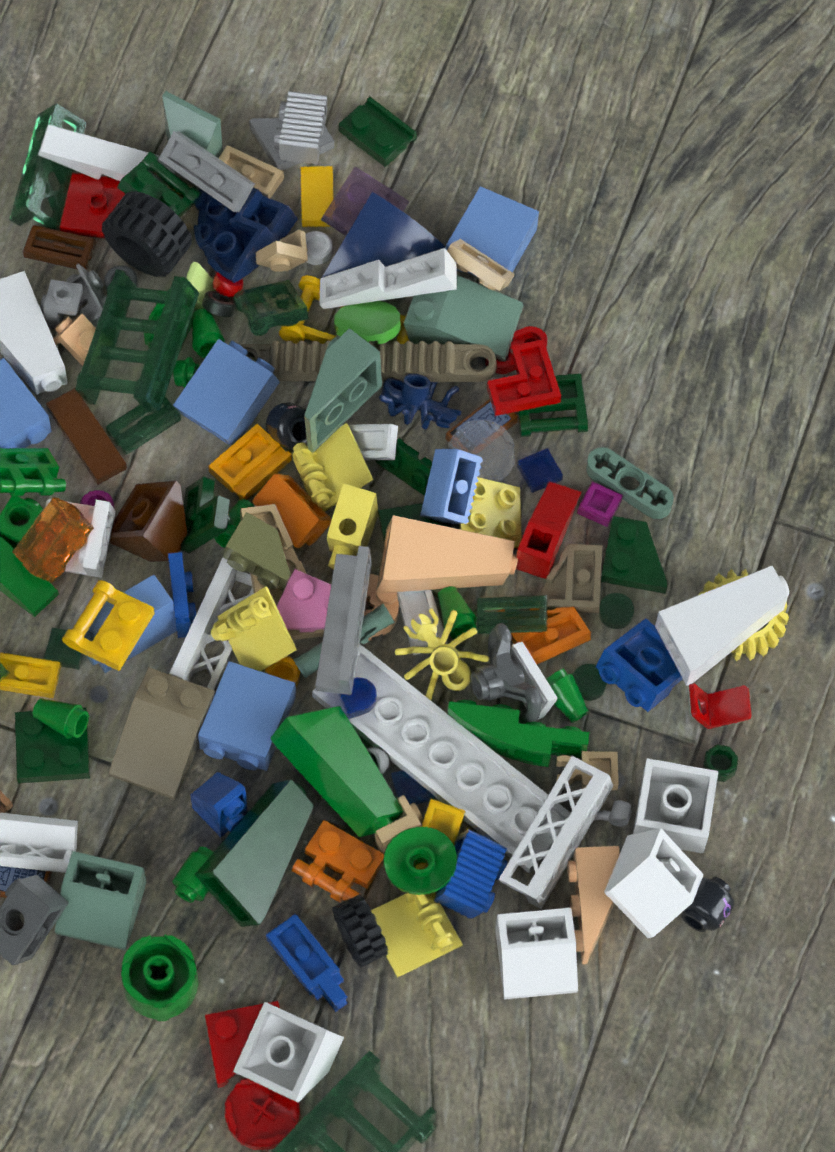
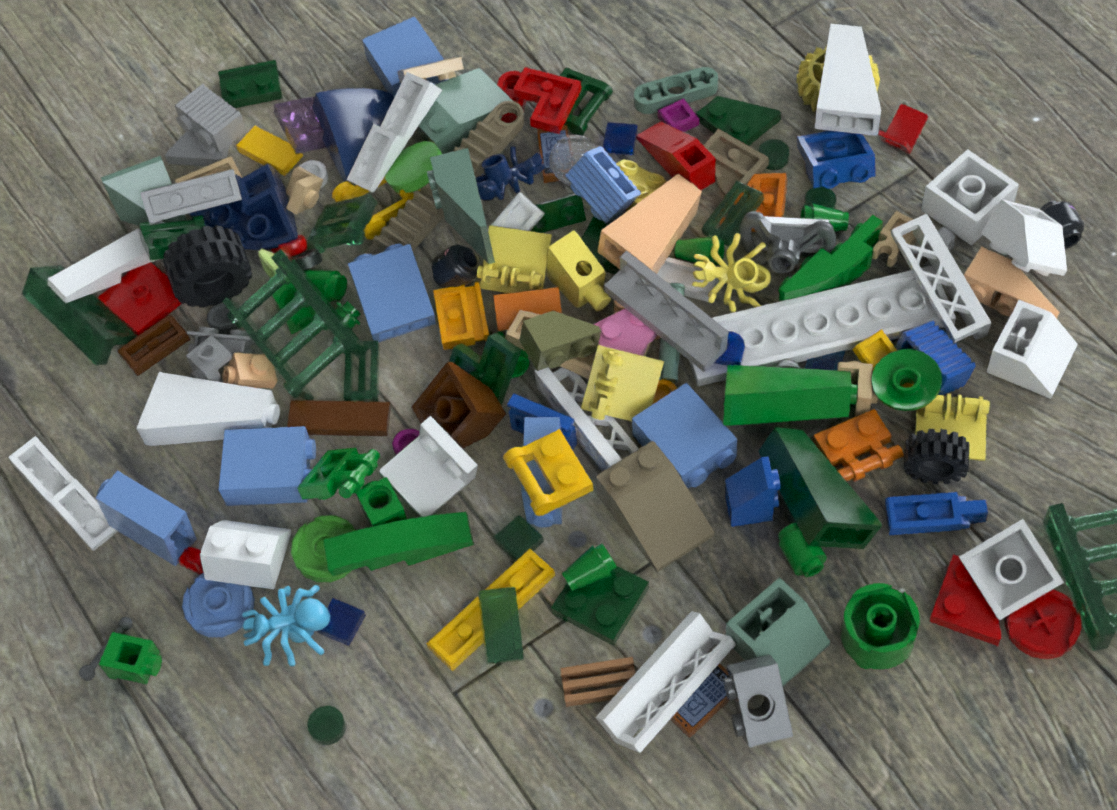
camera: 45 degrees left, 5 degrees down
(53, 539) = (427, 480): clear orange brick -> none
(721, 759) = (945, 154): dark green tile -> none

